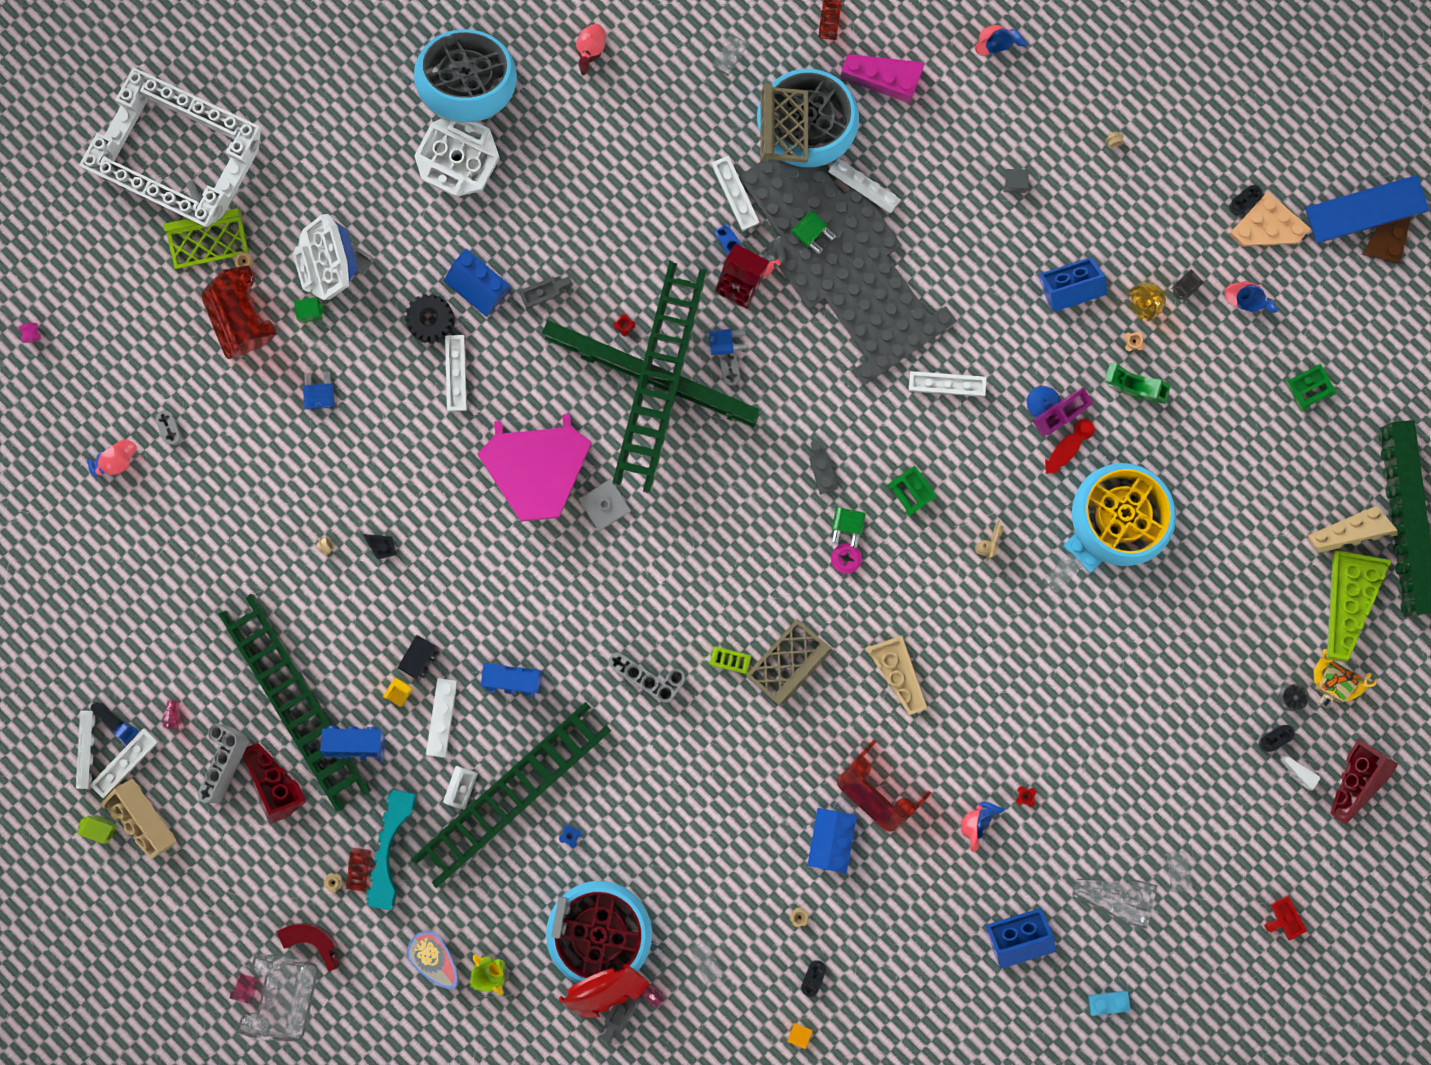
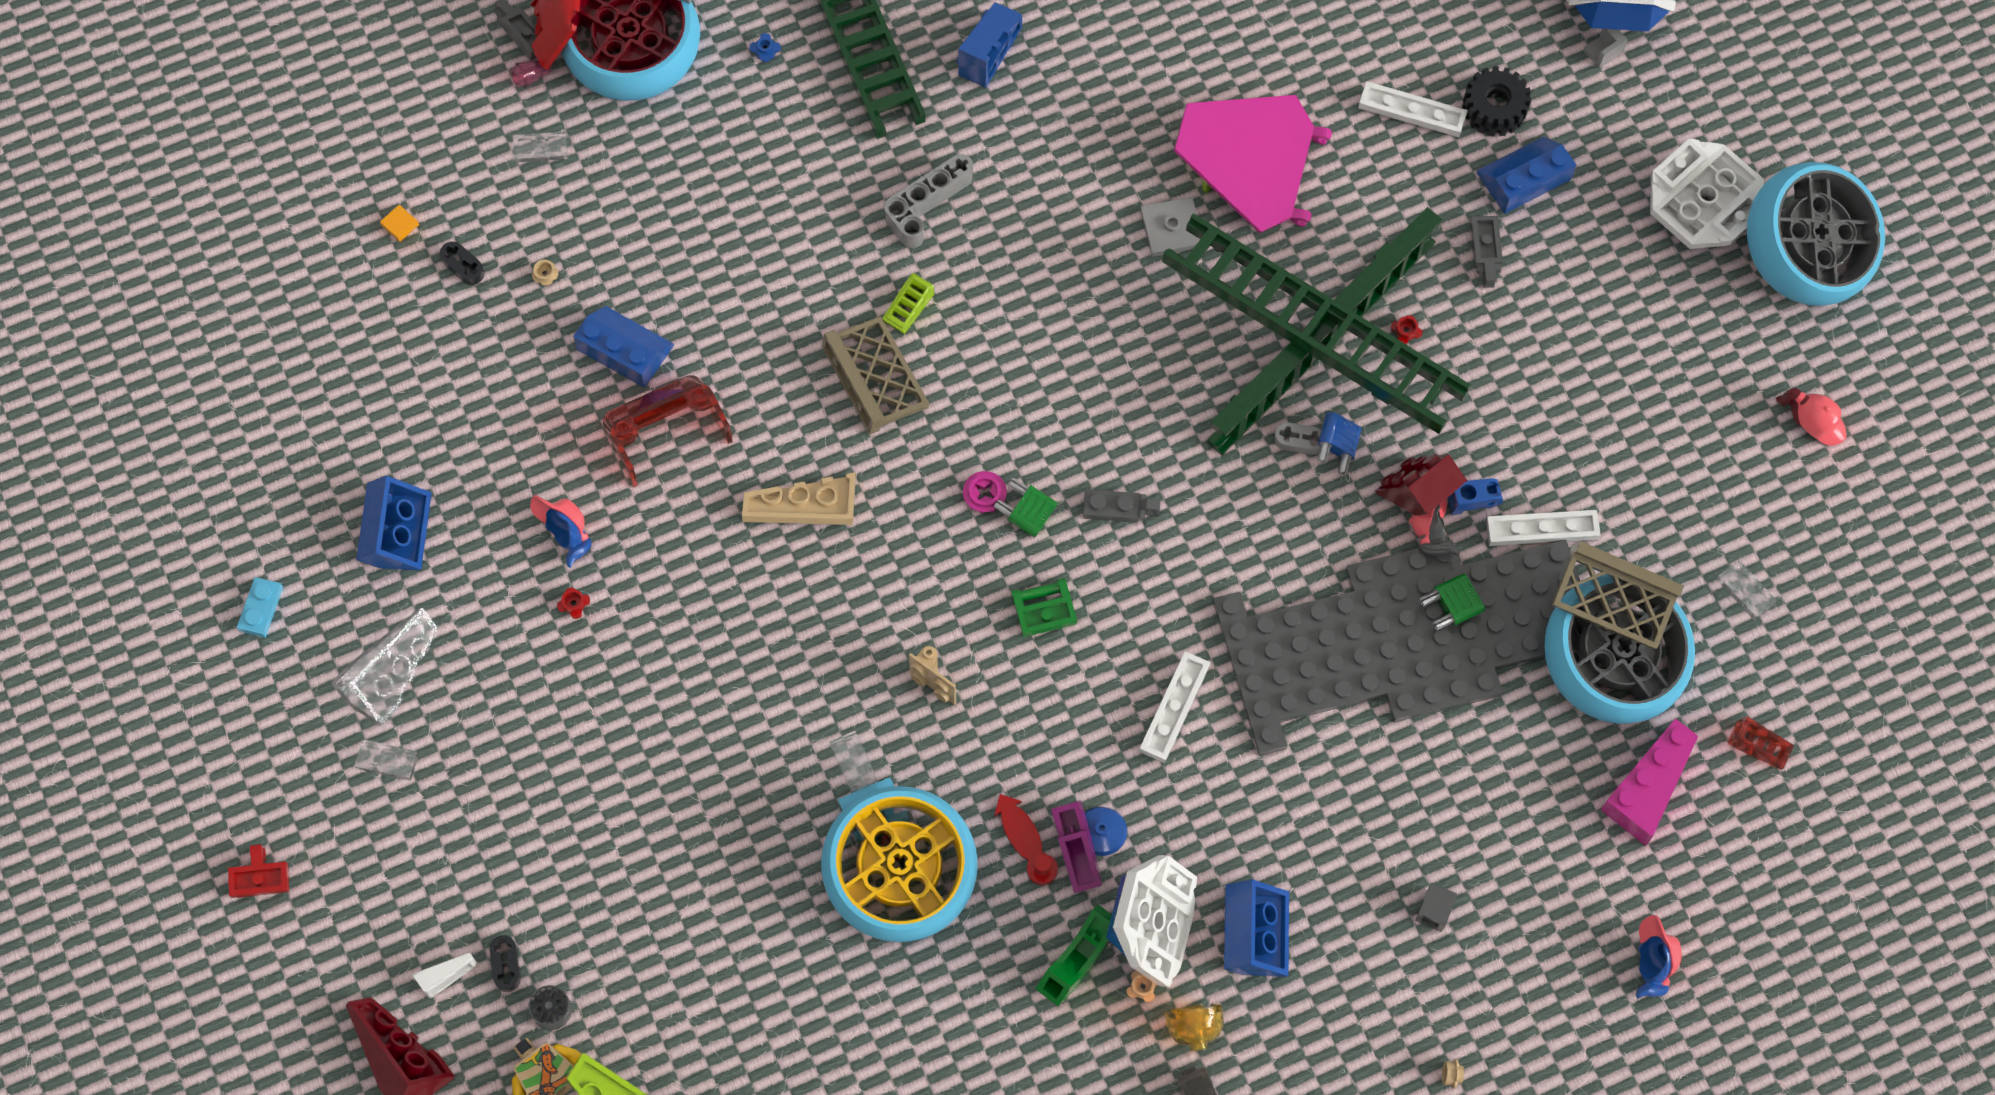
camera: 105 degrees right, 15 degrees down
(864, 185) = (1497, 699): white plate -> none
(1104, 344) = (1154, 917): none -> white piece

